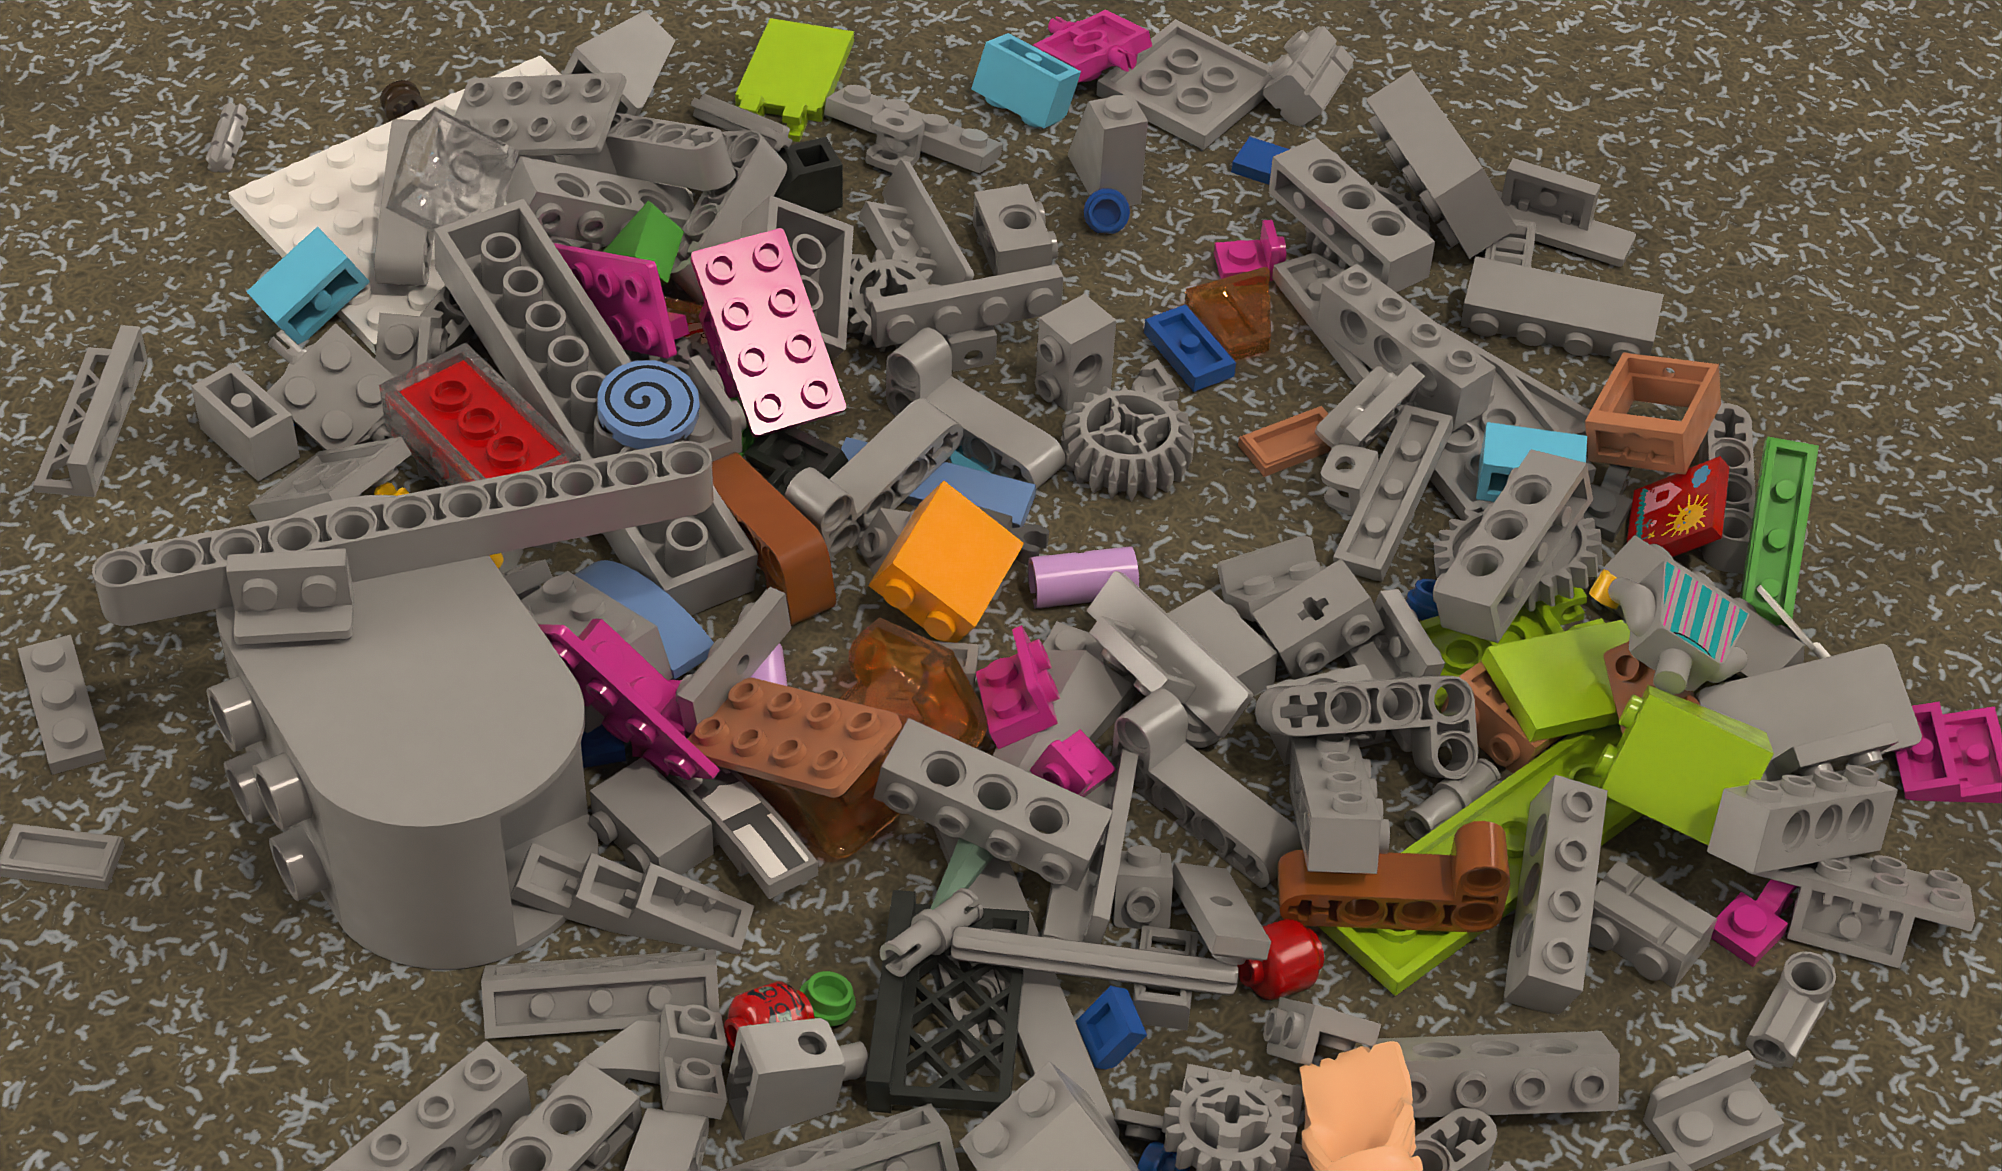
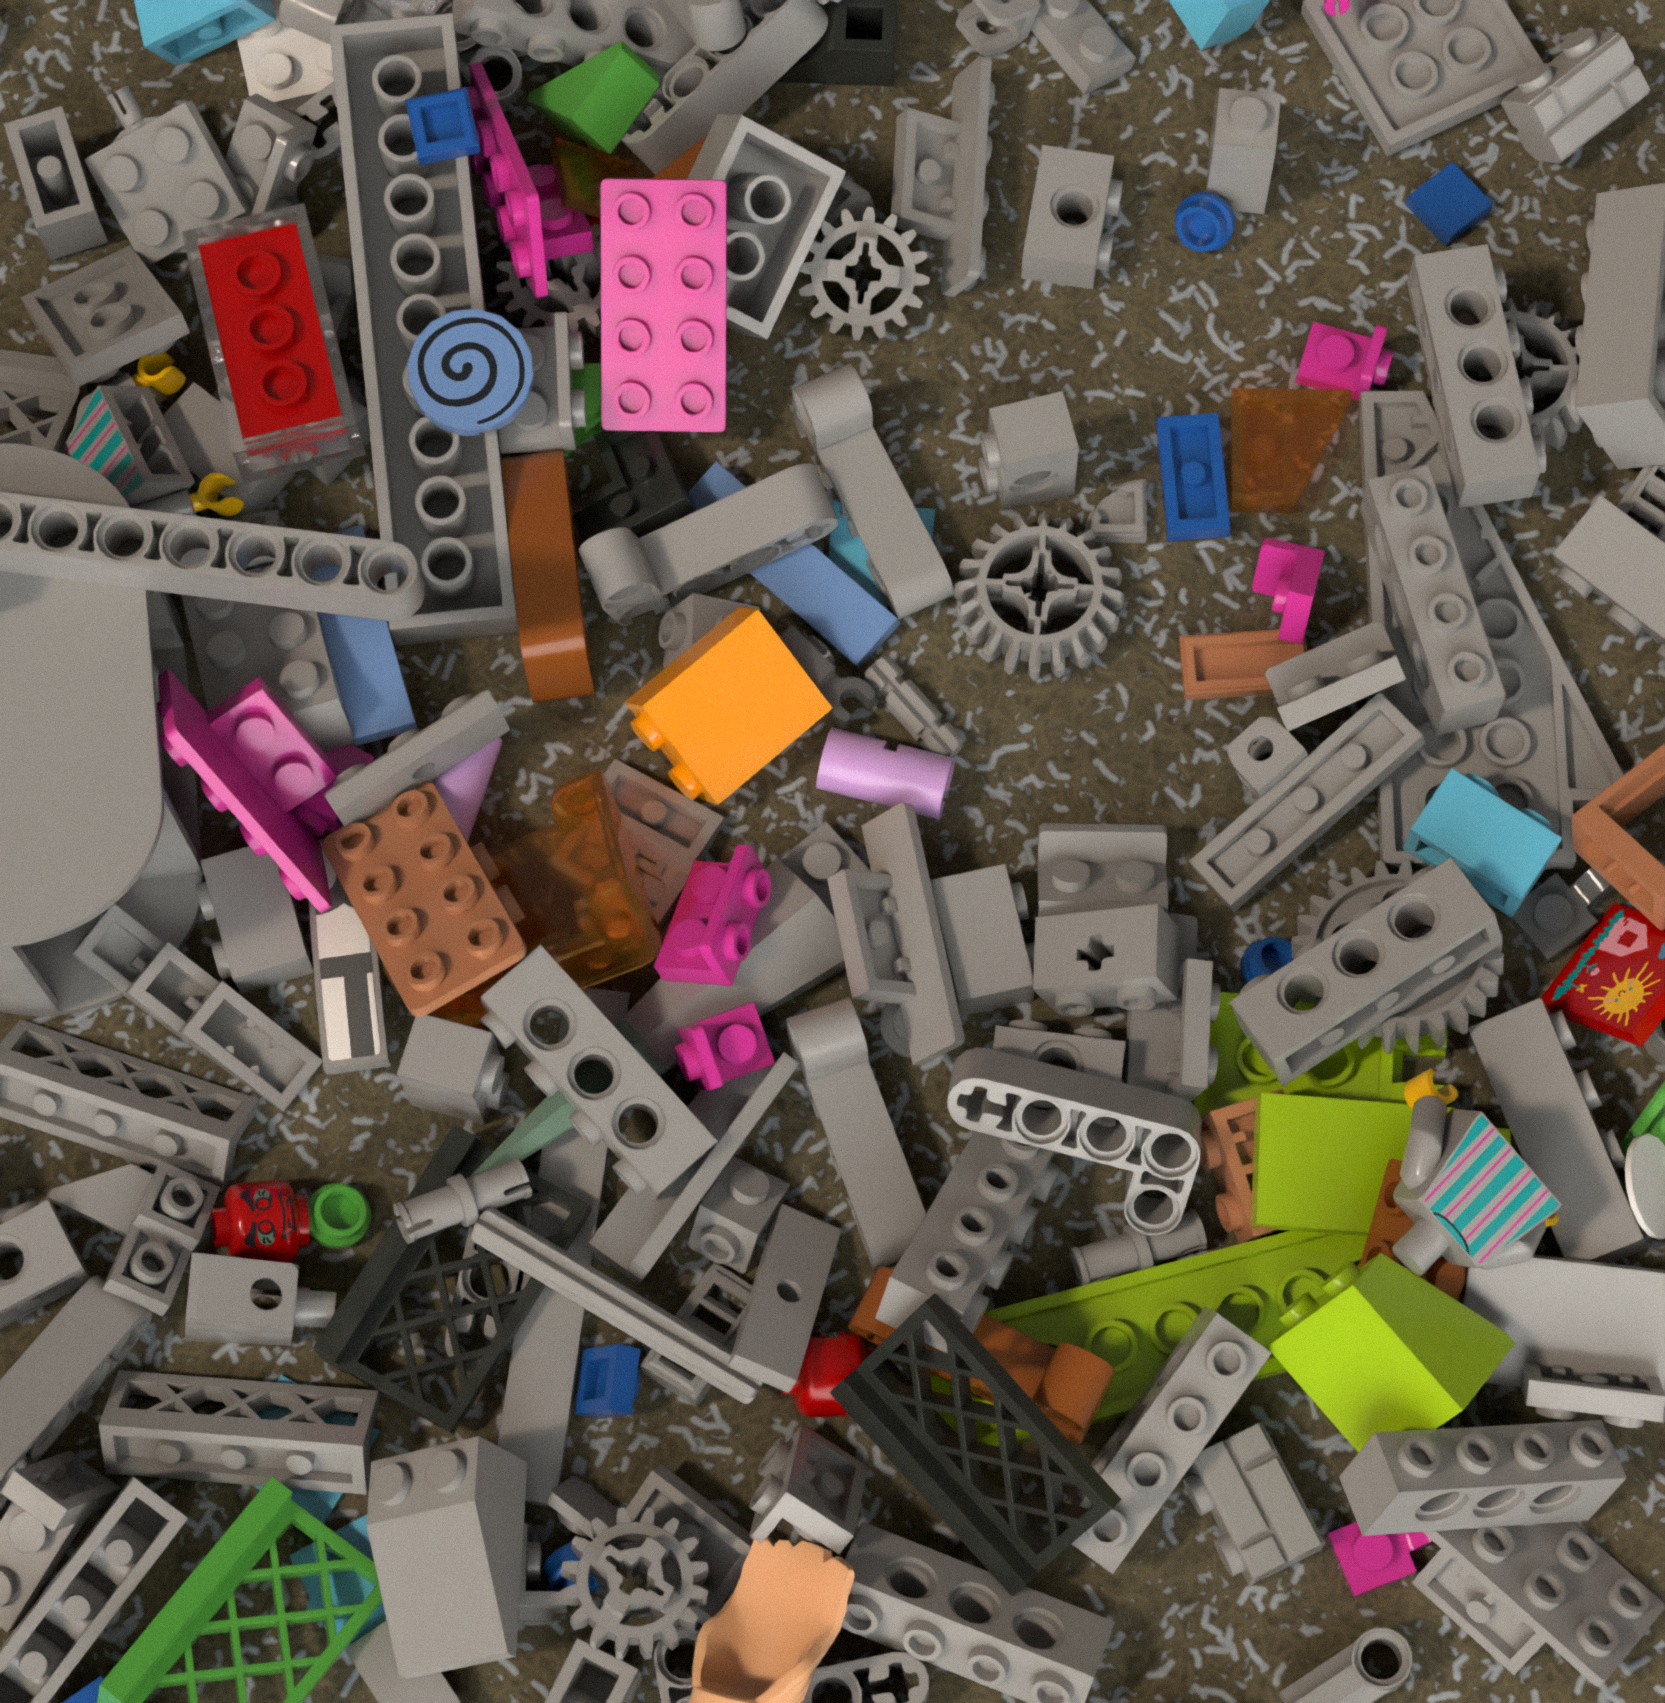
camera: 30 degrees right, 25 degrees up
(551, 262) = (442, 126): none -> blue tile
(872, 852) = (453, 1069): none -> light grey brick
(967, 311) = (930, 347): light grey plate -> none
(1074, 536) = (912, 708): none -> light grey axle
(1297, 377) = (1291, 577): none -> dark pink bracket
(1424, 973) = (950, 1466): none -> pearl dark grey fence

